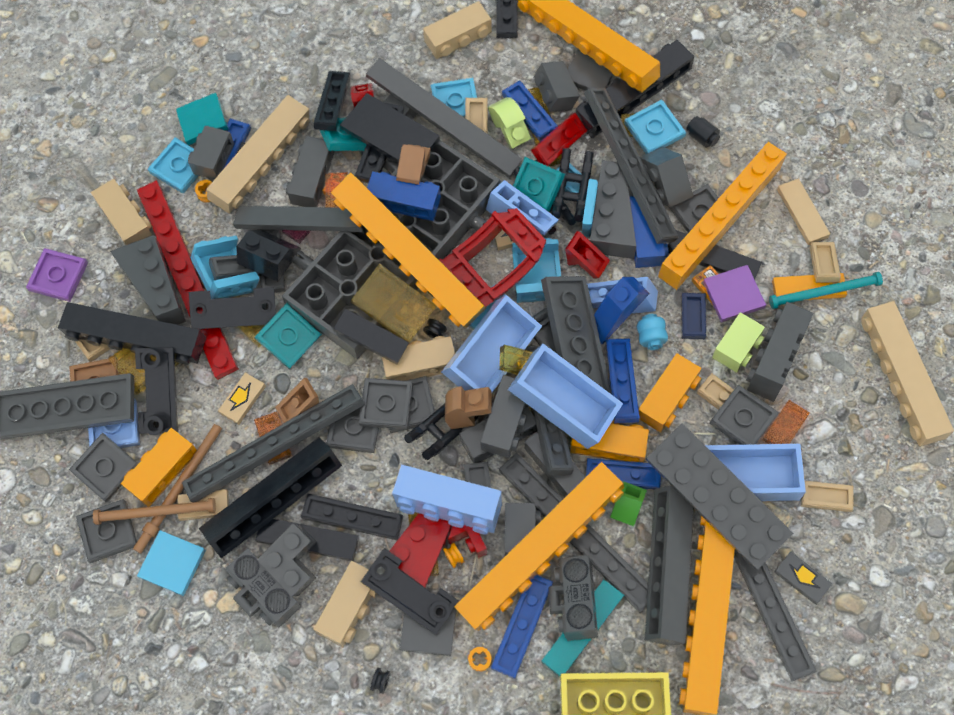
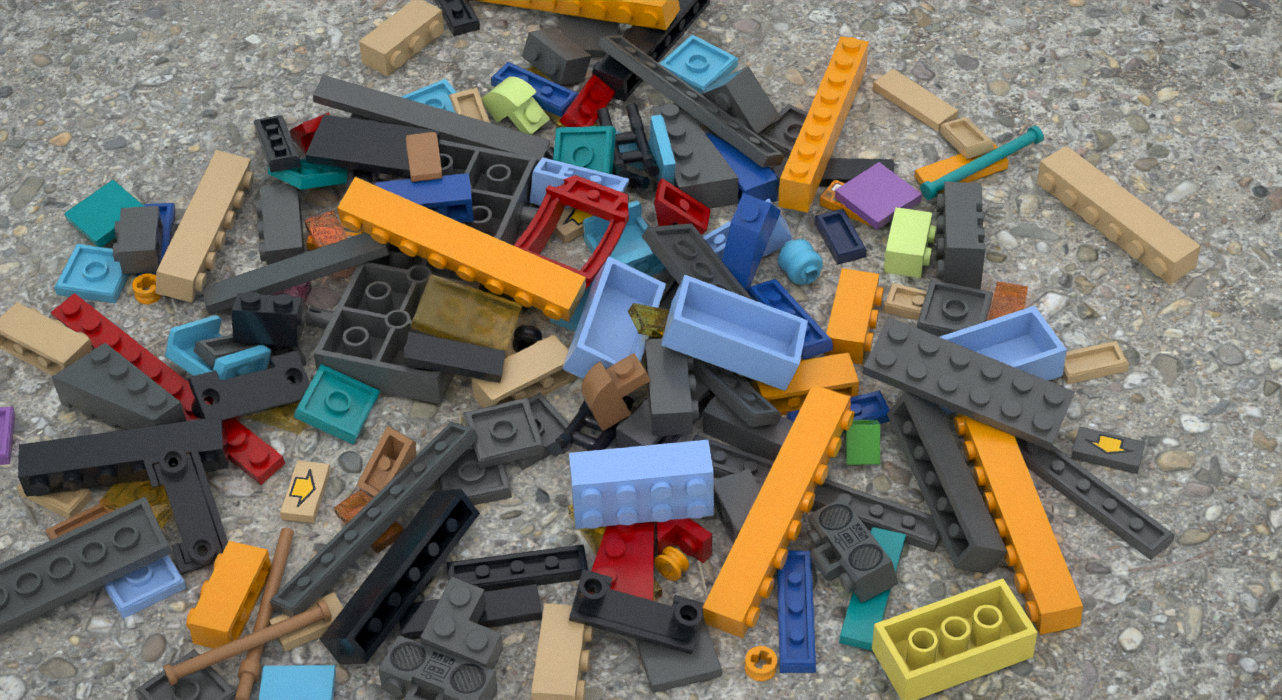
camera: 25 degrees left, 20 degrees down
(103, 467) = (149, 622): dark grey tile -> none
(703, 131) = (757, 54): black brick -> none

